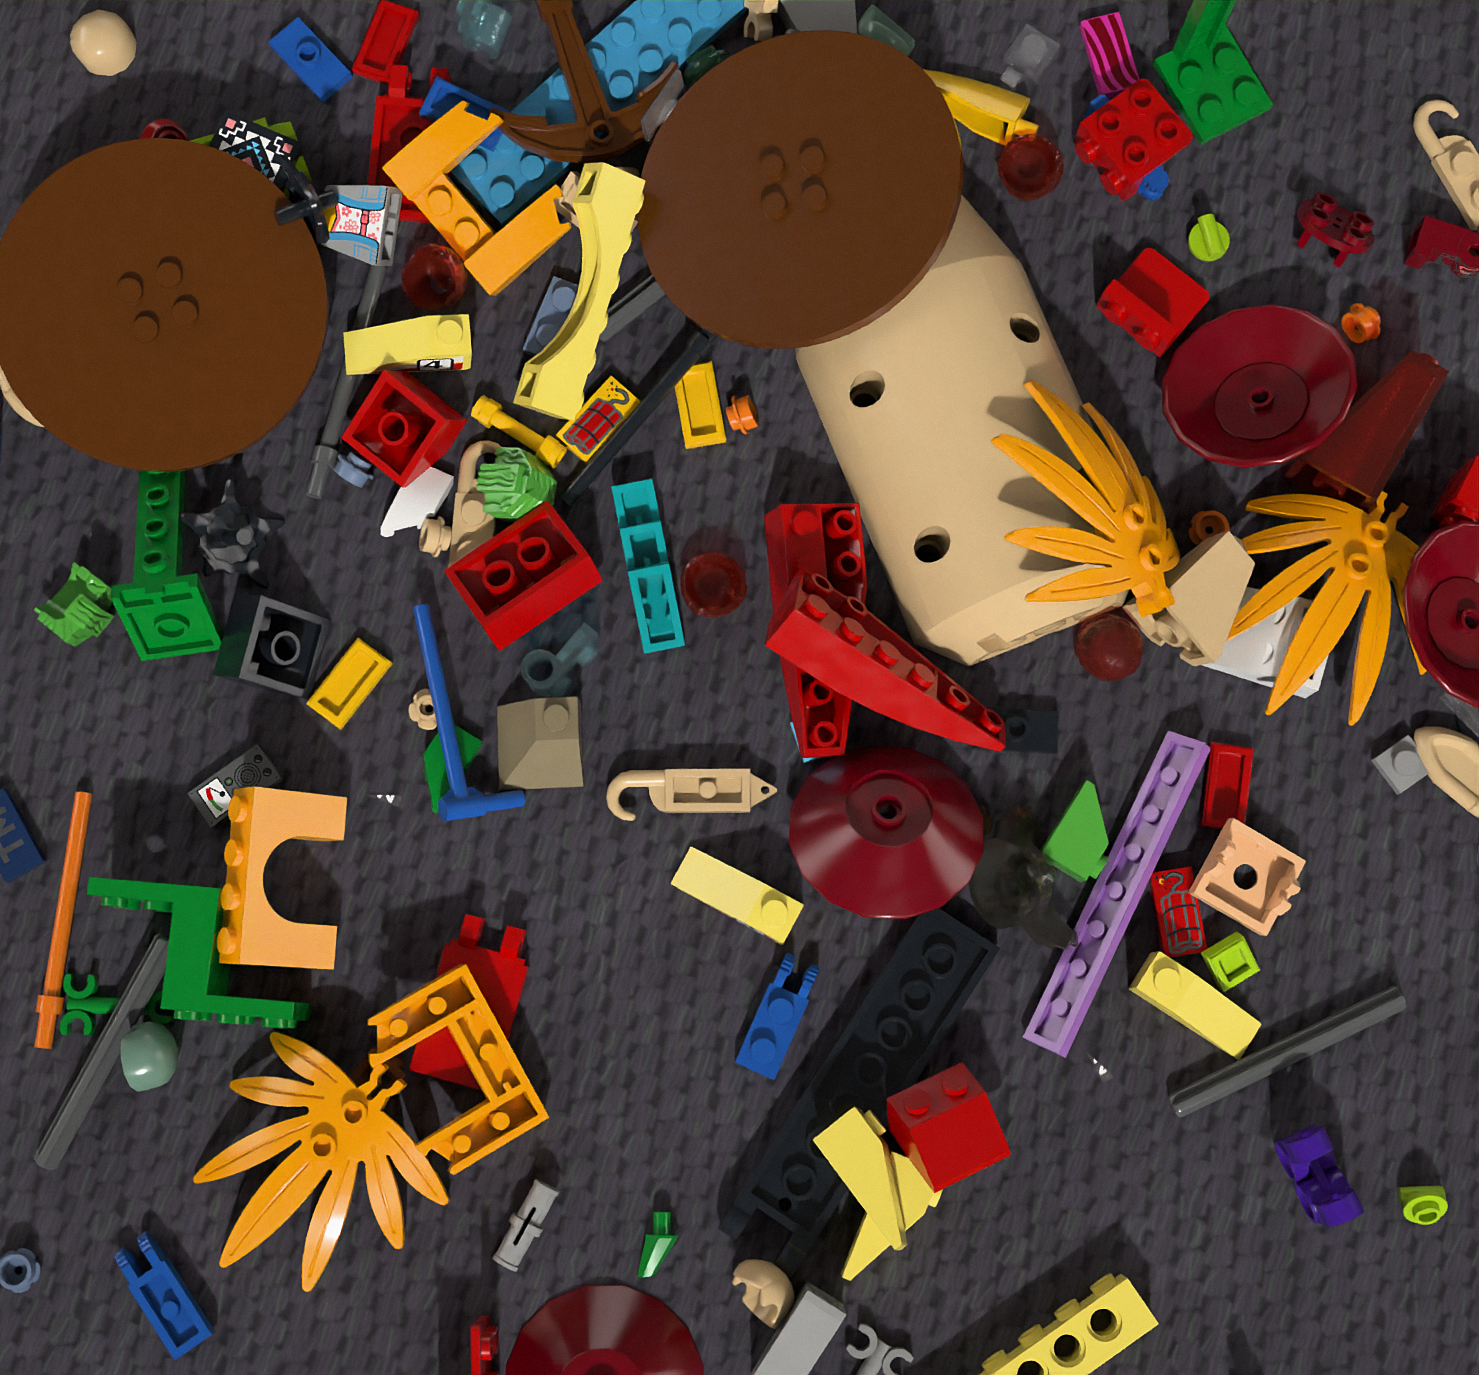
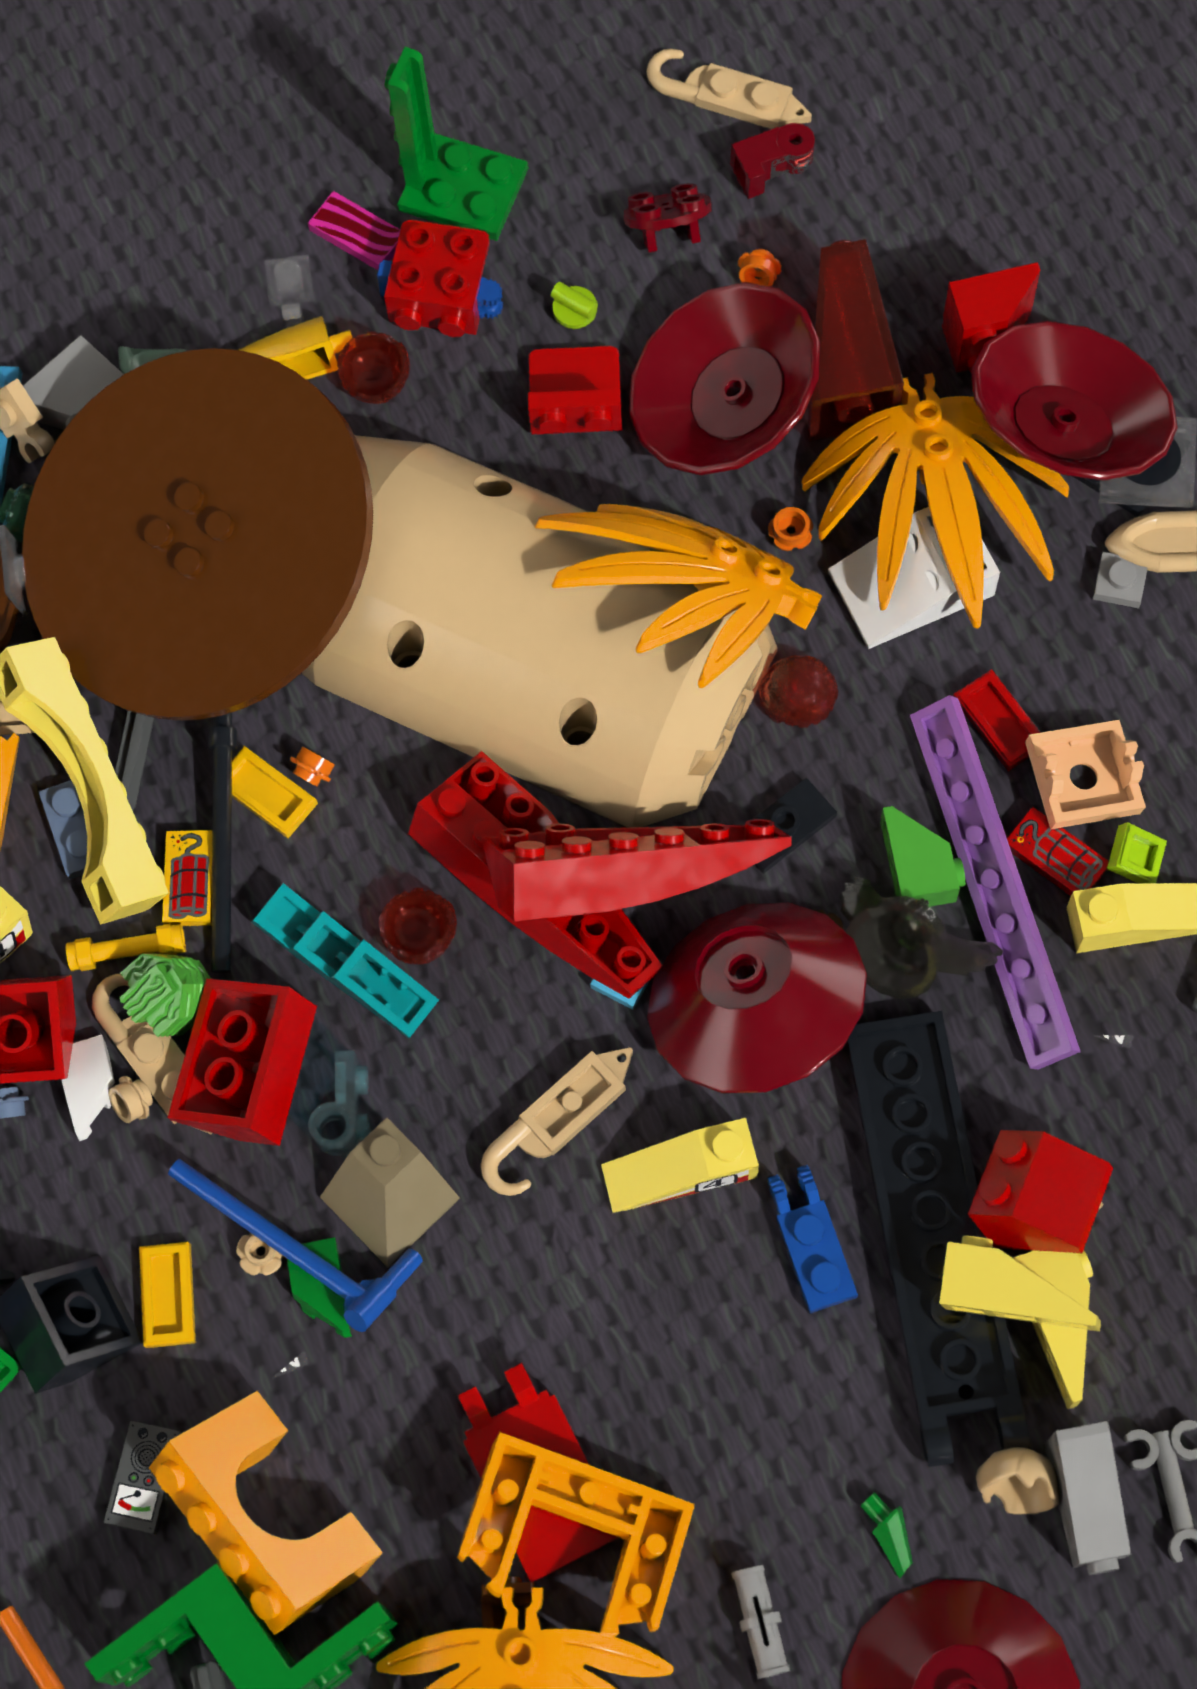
camera: 40 degrees left, 10 degrees down
(1206, 596) = (854, 603): tan slope -> none

